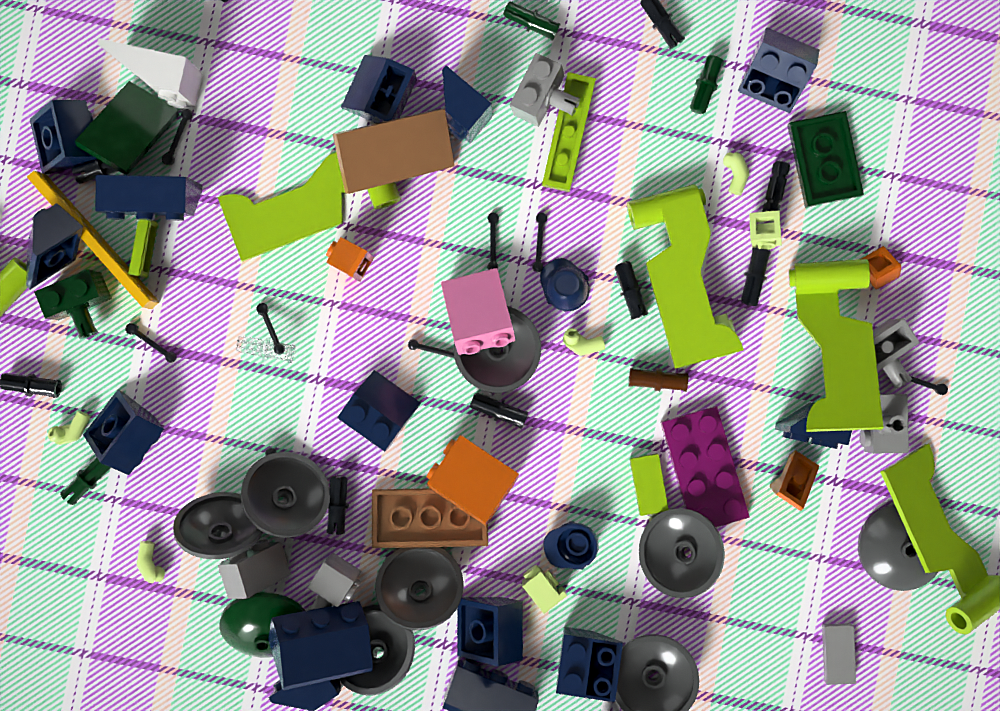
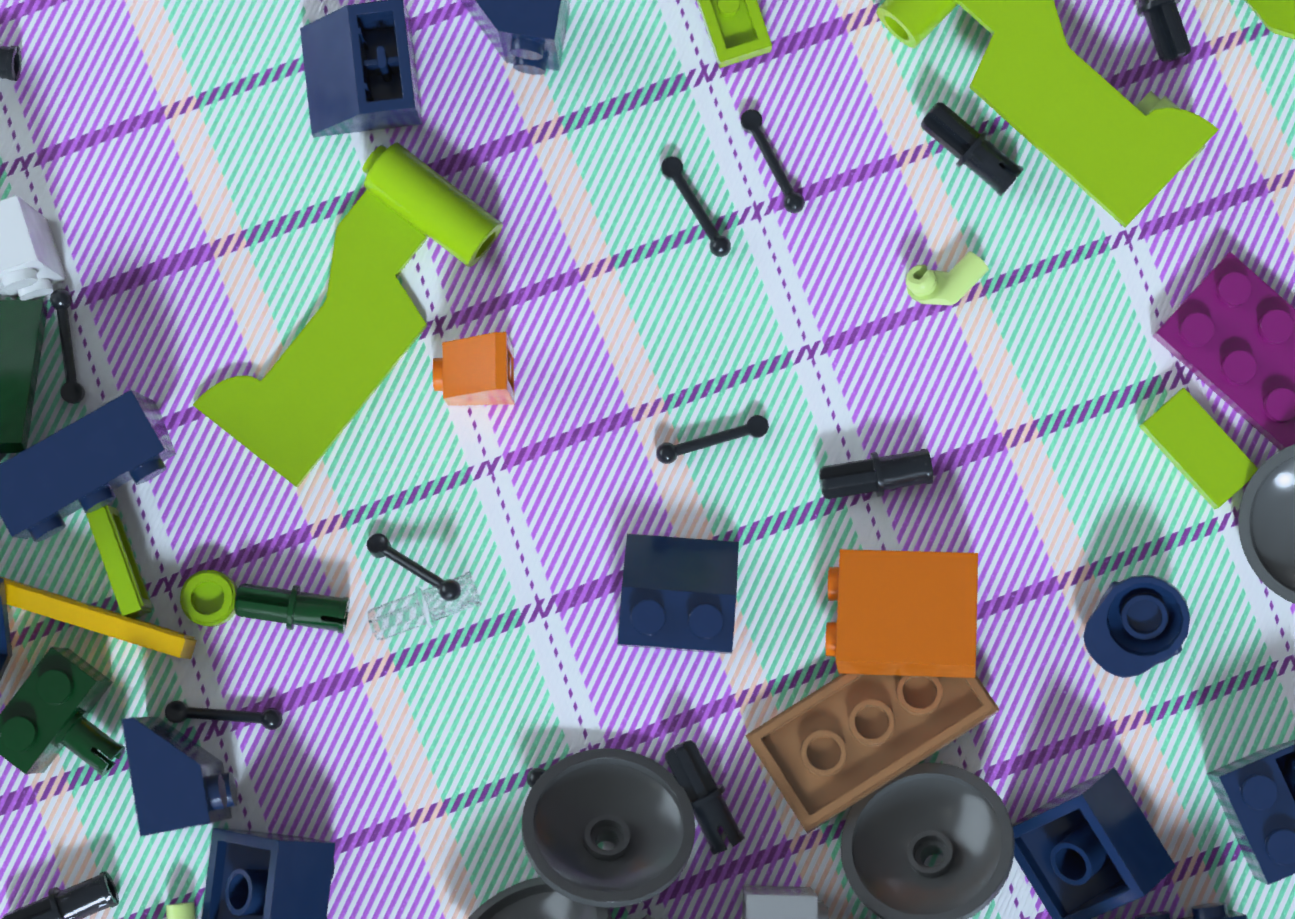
camera: 30 degrees left, 5 degrees down
(109, 359) = (174, 778): none -> dark blue slope
(174, 287) = (208, 598): none -> lime tile
(207, 314) = (292, 607): none -> dark green axle
(393, 150) = (447, 148): medium nougat tile -> none
(478, 312) = (745, 327): bright pink panel -> none
(512, 366) = (821, 332): dark grey dish -> none
(543, 588) = (1133, 725): yellowish green brick -> none
(564, 285) = (856, 206): dark blue hat -> none
(658, 379) = (1107, 266): reddish brown pin -> none

